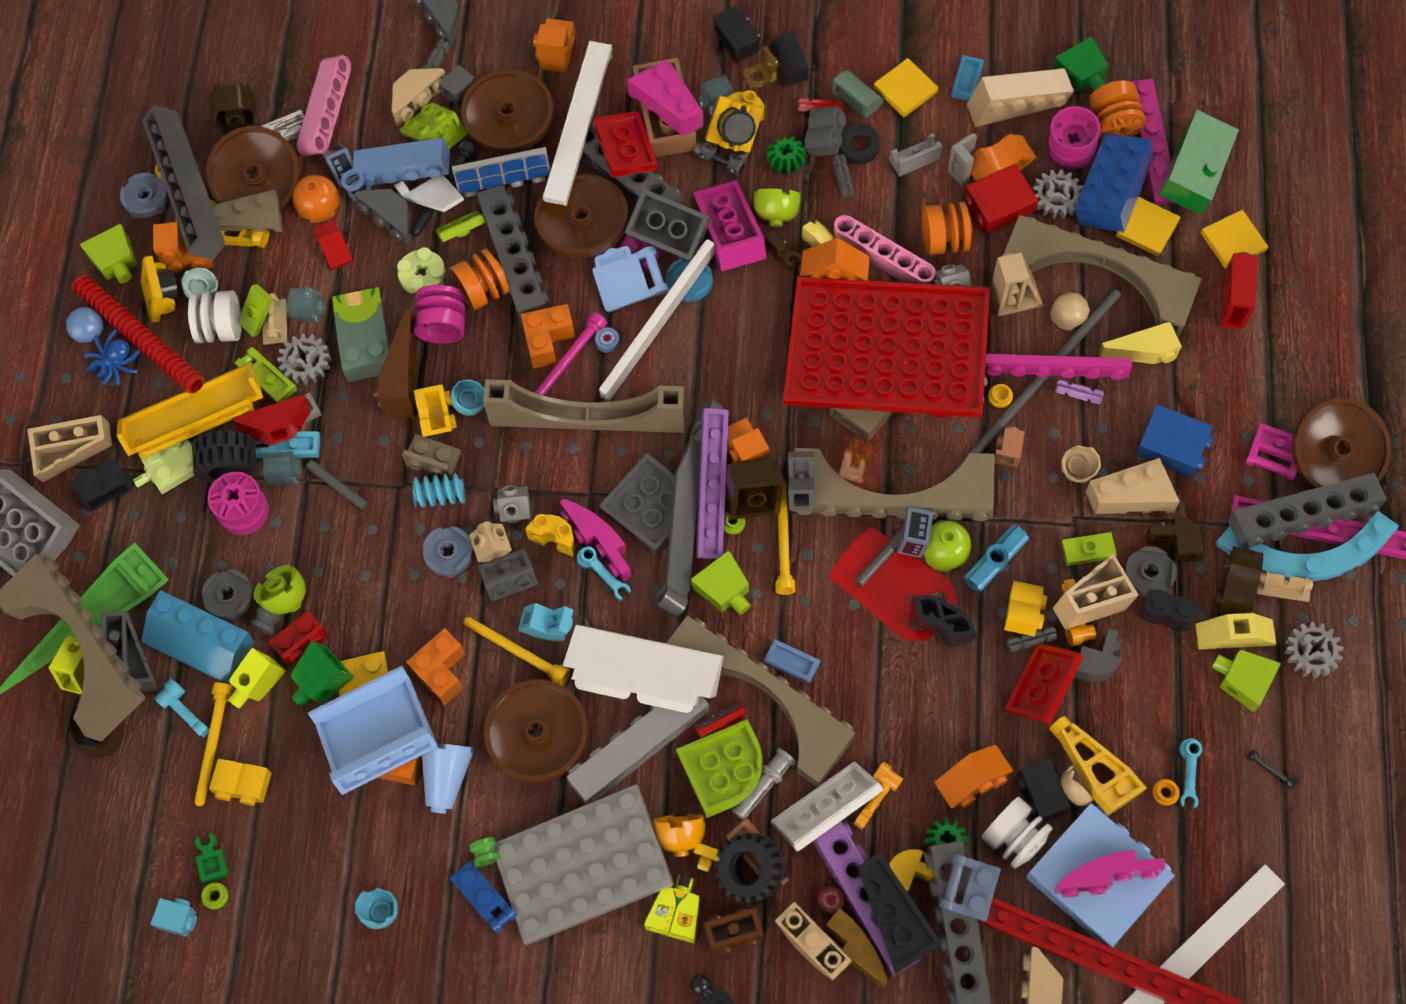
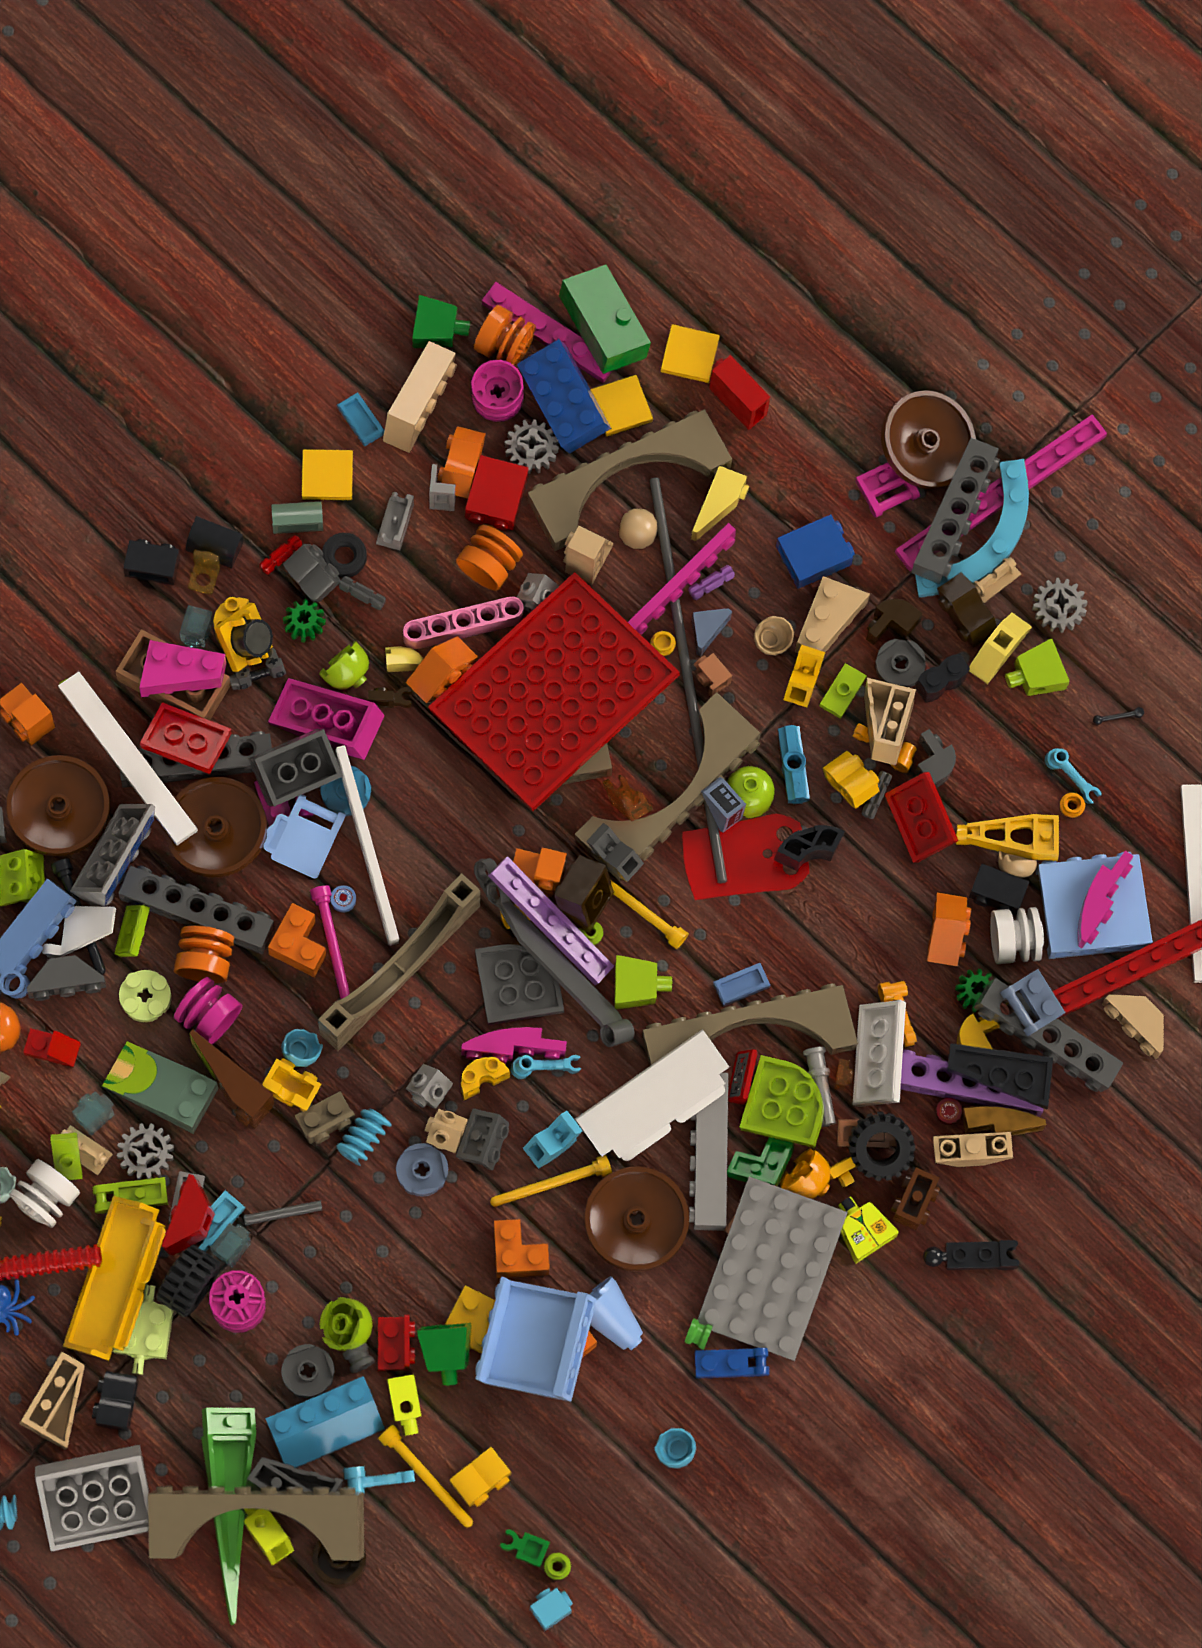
camera: 60 degrees left, 5 degrees up
(662, 796) = (767, 1167): none -> green plate
(786, 794) = (843, 1075): none -> clear orange plate
(1043, 415) = (707, 627): none -> sand blue slope
(1071, 511) = (804, 676): none -> yellow brick

